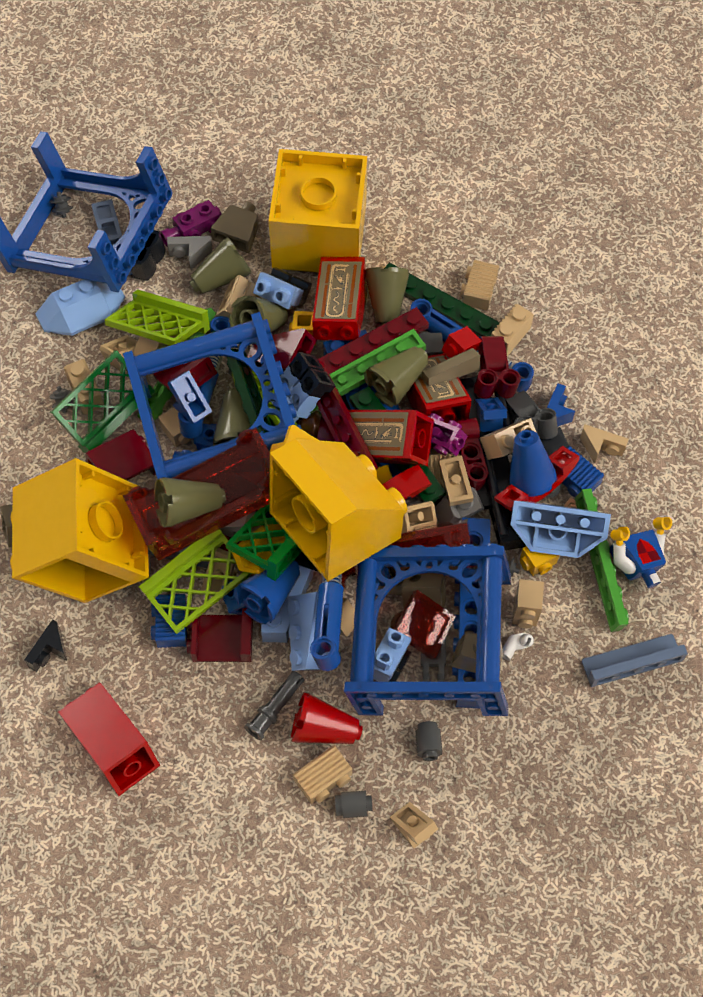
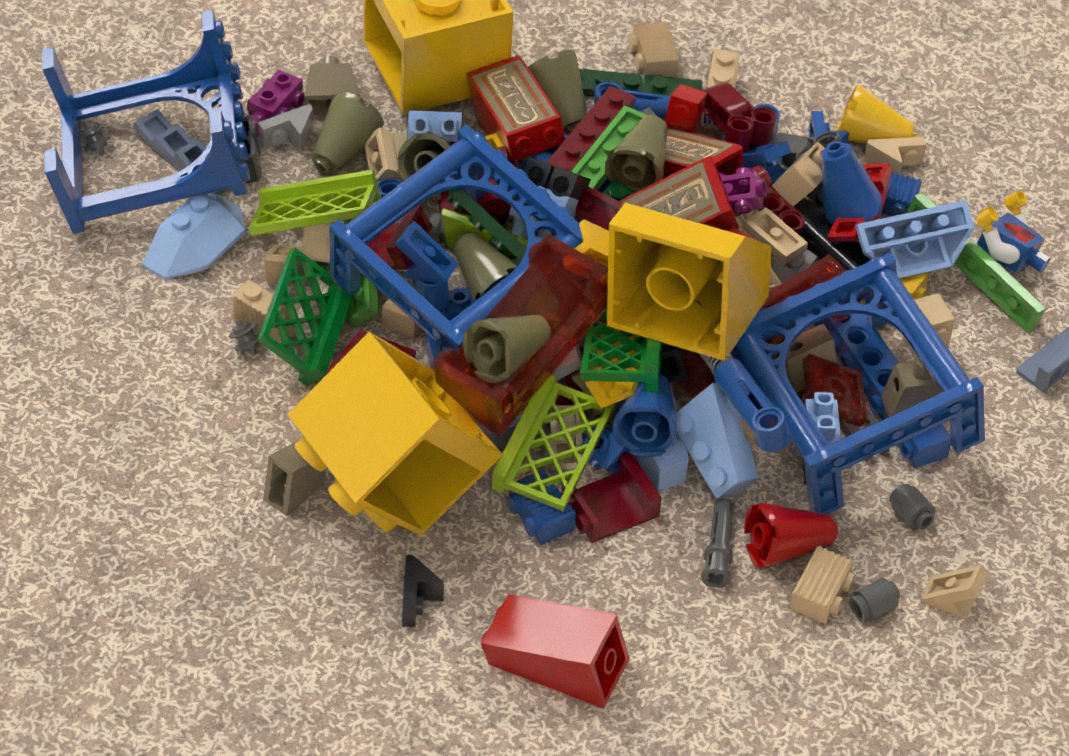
camera: 30 degrees left, 15 degrees down
(452, 368) = (696, 127): dark tan piece -> none
(600, 409) = (871, 118): none -> yellow cone

